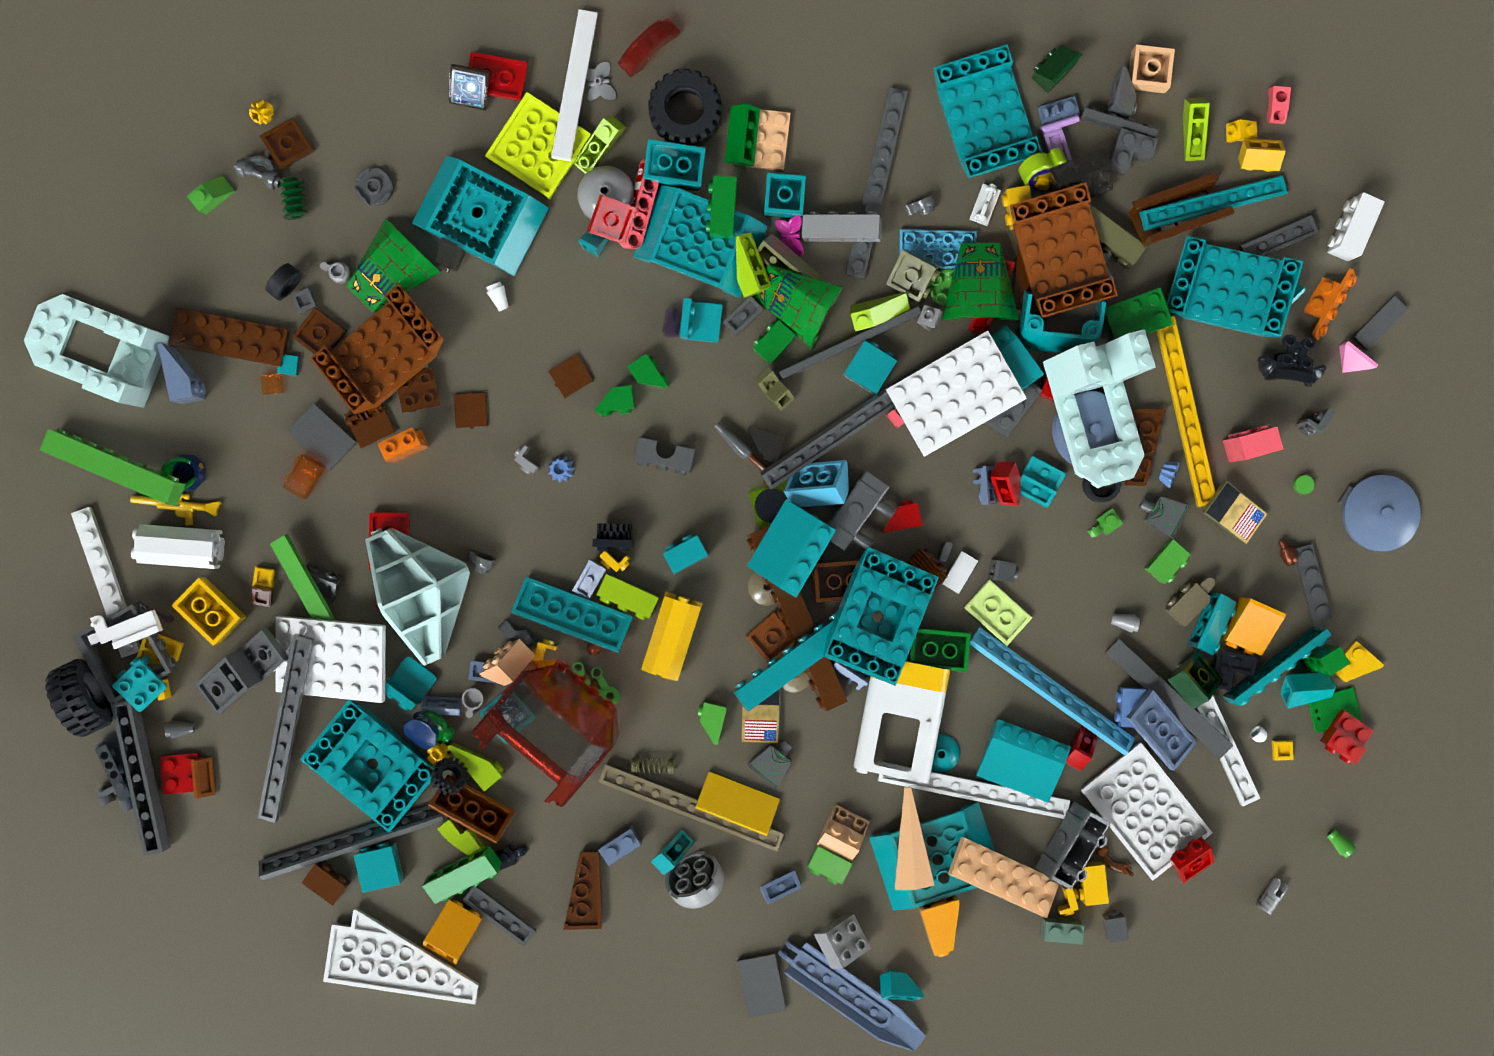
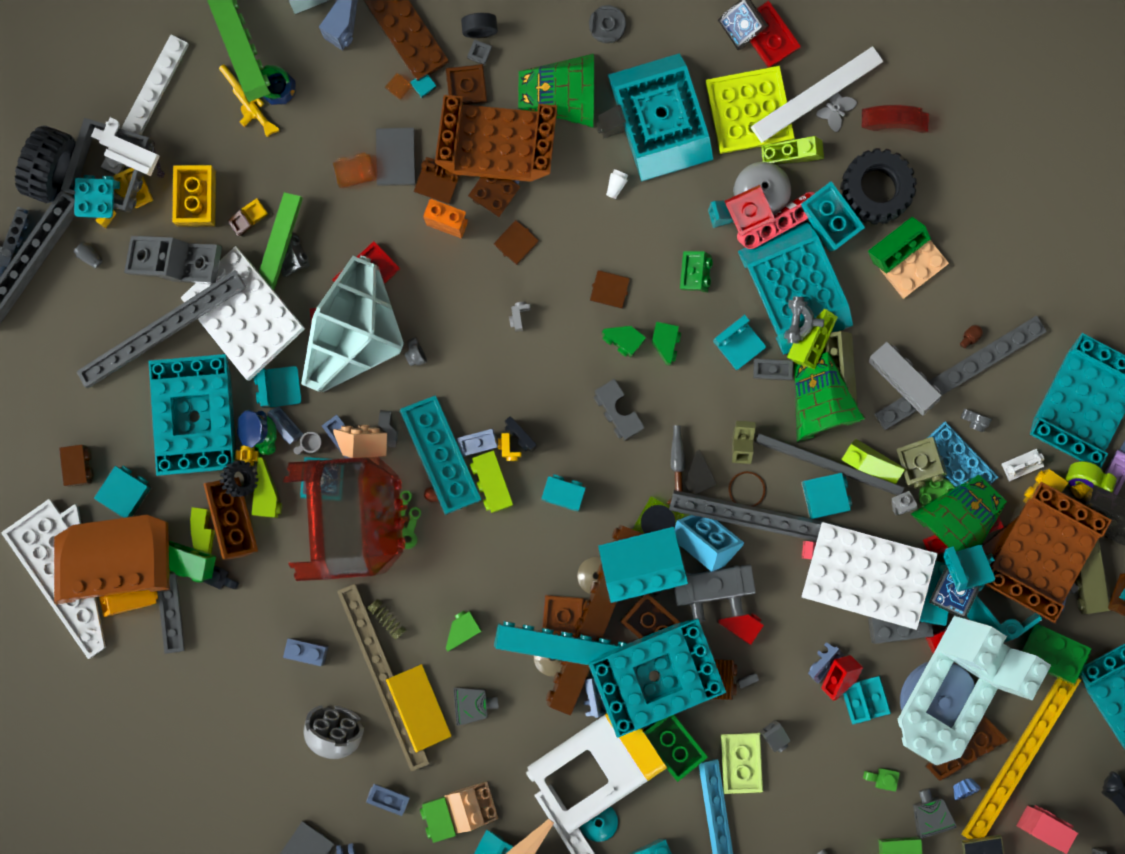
camera: 45 degrees right, 5 degrees down
(177, 773) = (57, 287): red plate -> none
(178, 546) = (220, 130): white brick -> none
(203, 777) = (69, 305): dark orange tile -> none
(338, 271) = (523, 56): light grey piece -> none
(346, 843) = (119, 452): dark grey plate -> none
(418, 921) = (111, 558): none -> dark orange slope
(541, 648) = (394, 456): yellow bracket -> none
(561, 468) = (536, 346): medium blue piece -> none
(585, 899) = (240, 666): reddish brown wing -> none
(614, 531) = (530, 426): black tyre -> none
(618, 301) = (696, 271): none -> green bracket
(671, 323) = (716, 324): clear purple cone -> none
(671, 636) = (494, 541): yellow brick -> none
(672, 852) = (337, 695): teal slope -> none
(716, 254) = (798, 307): none -> dark grey piece
(722, 207) = (835, 279): green brick -> none
(762, 722) = (496, 667): tile -> none
(774, 342) = (776, 409): green brick -> none
(784, 195) = (887, 316): teal brick -> none
(789, 233) = (862, 345): dark pink piece -> none
(803, 403) = (756, 475): none -> reddish brown piece
(858, 148) = (971, 336): none -> copper cylinder
(960, 572) = (743, 706): white tile -> none
(1019, 318) = (968, 567): none -> teal bracket
(1027, 344) = (947, 597): none -> slope
(1100, 499) = (896, 756): black tyre -> none

